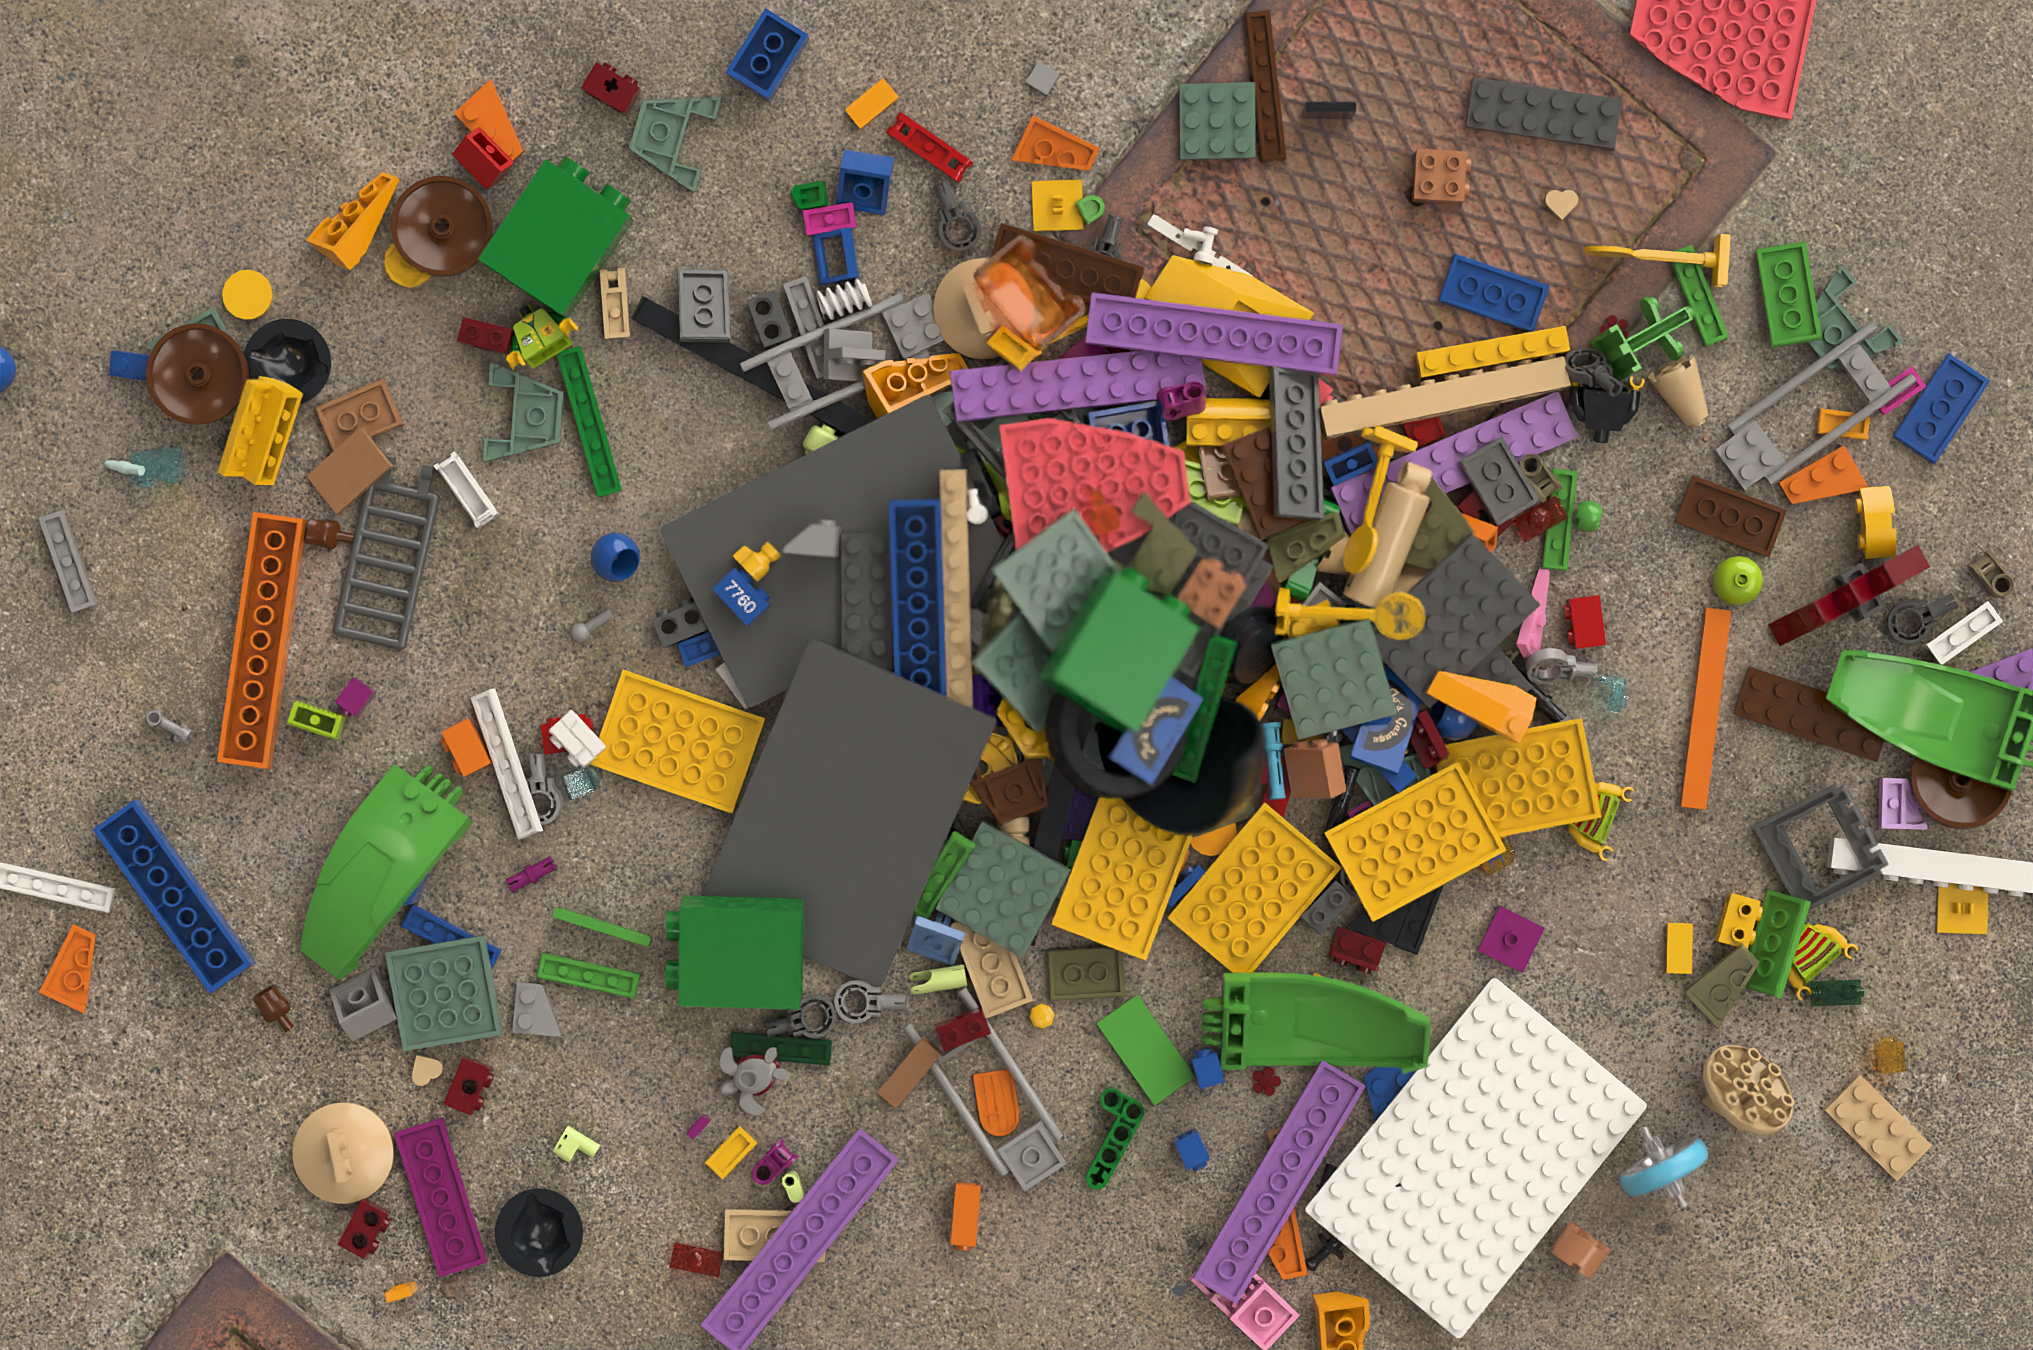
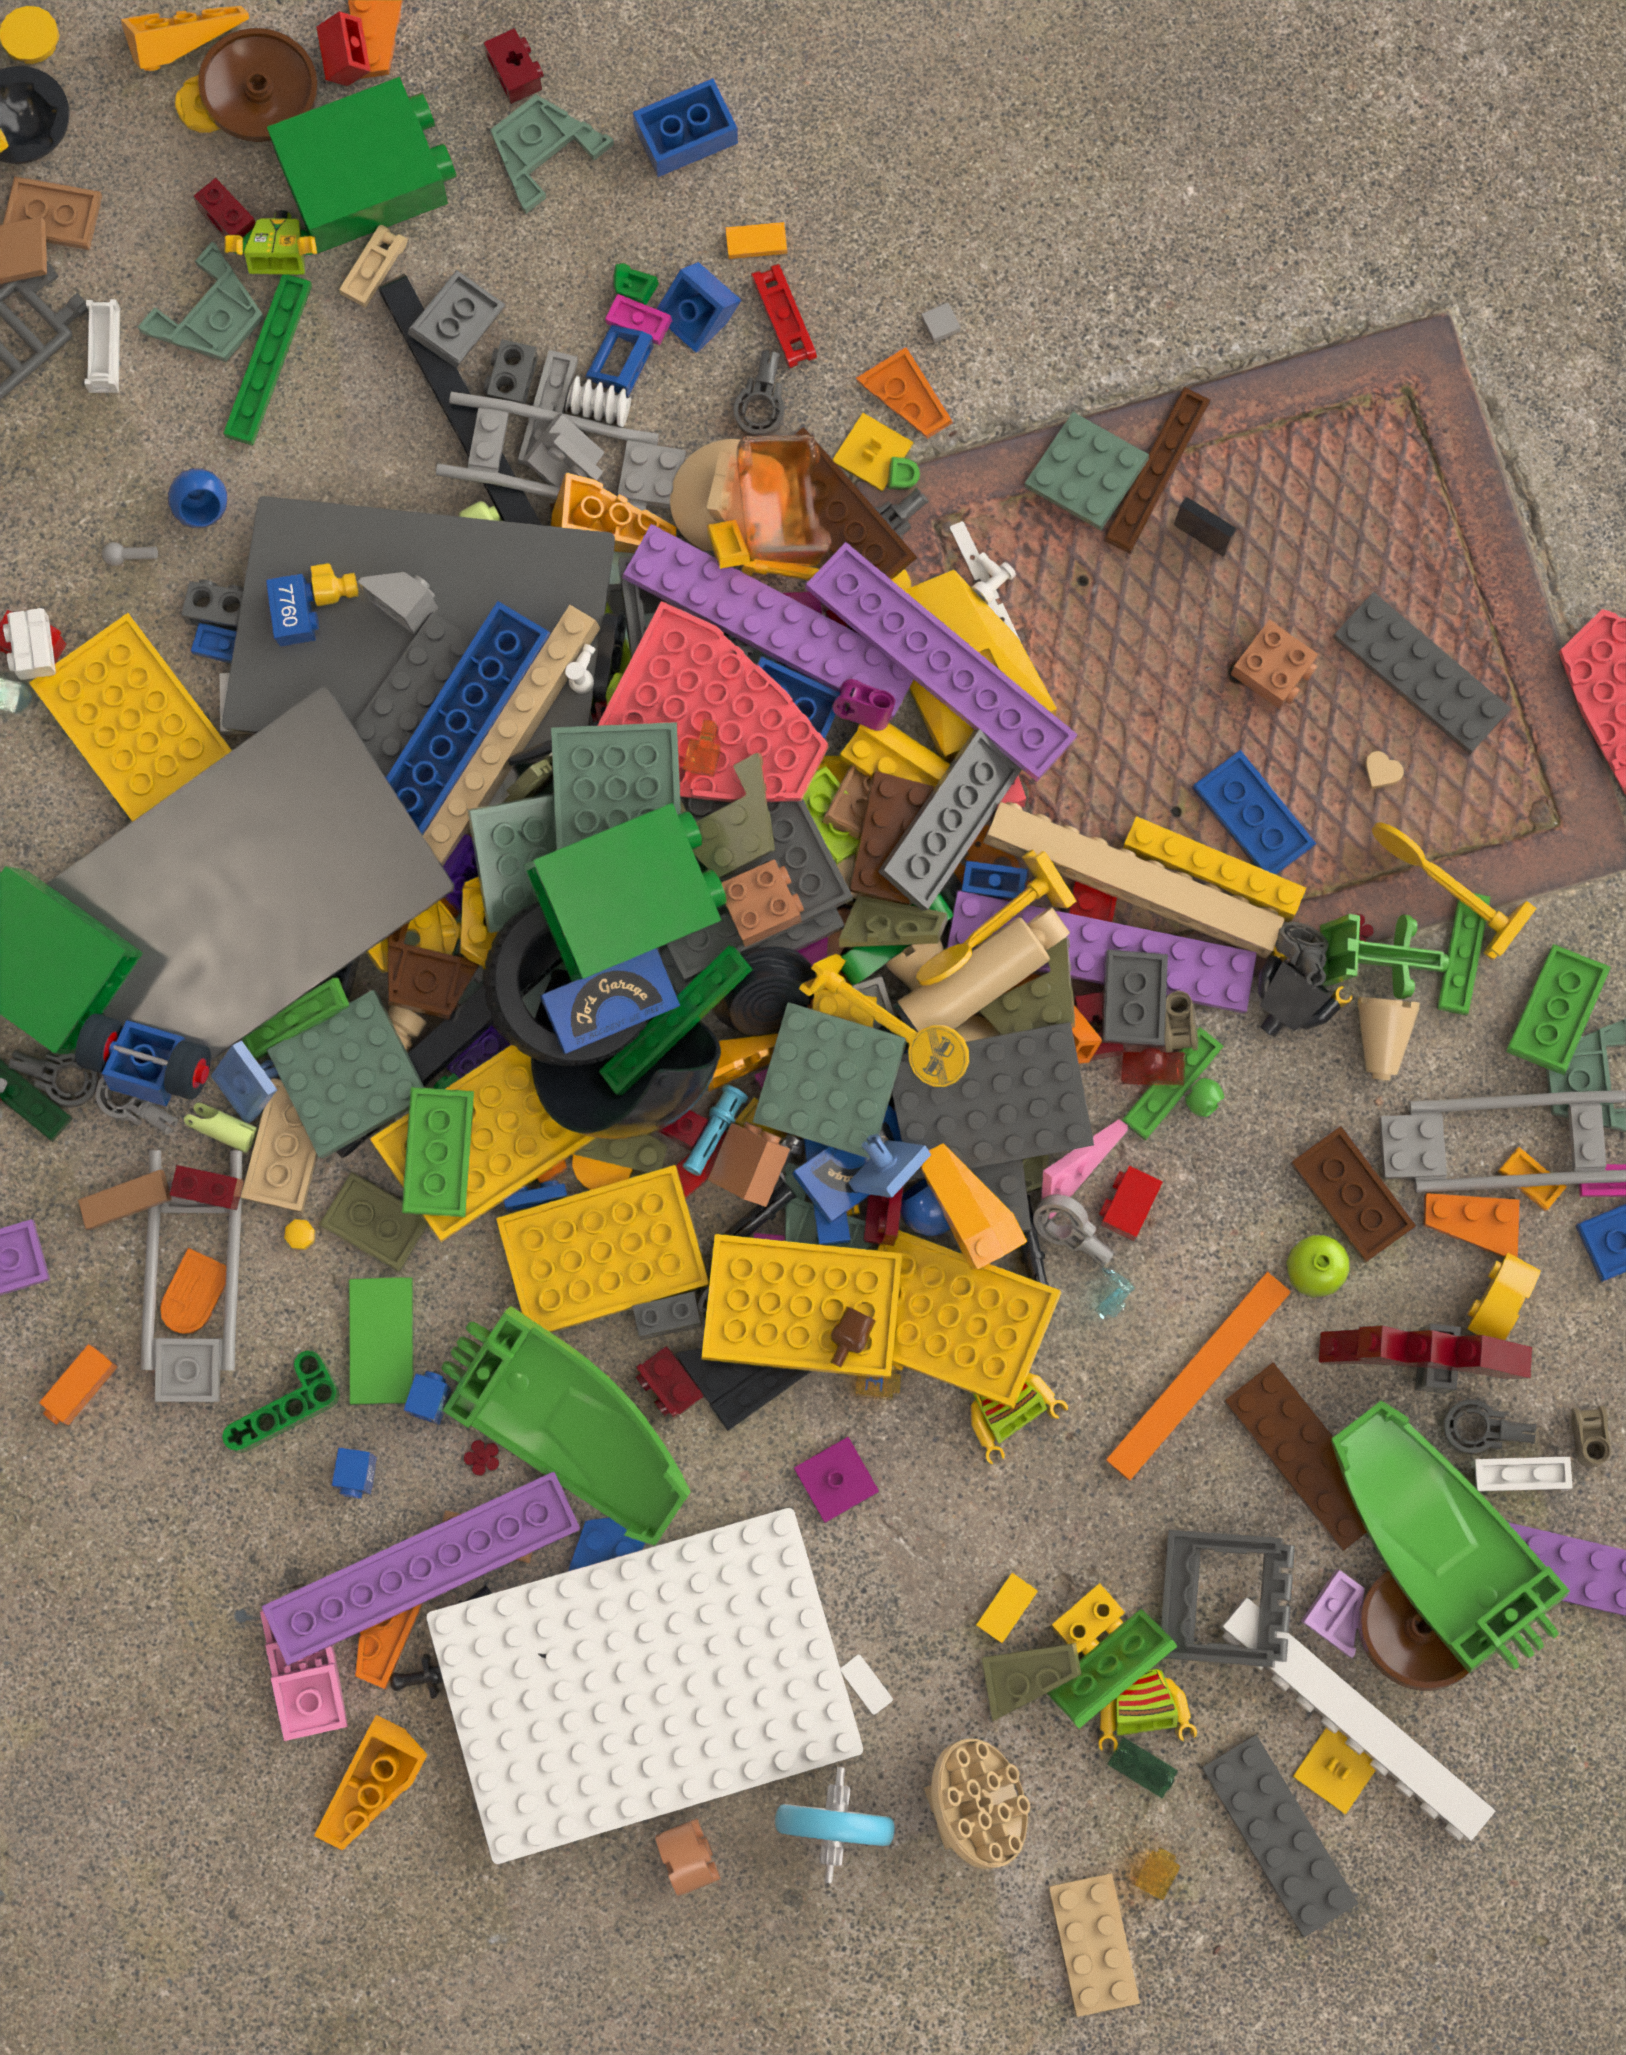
camera: 35 degrees right, 10 degrees down
(861, 973) = (142, 1059): none -> brick
(1104, 903) = (438, 1152): none -> bright green tile
(1414, 712) = (889, 1166): none -> medium blue tile
(1463, 841) = (850, 1334): none -> reddish brown piece
(1619, 1059) = (866, 1684): none -> white sticker
(1952, 976) = (1279, 1835): none -> dark grey plate

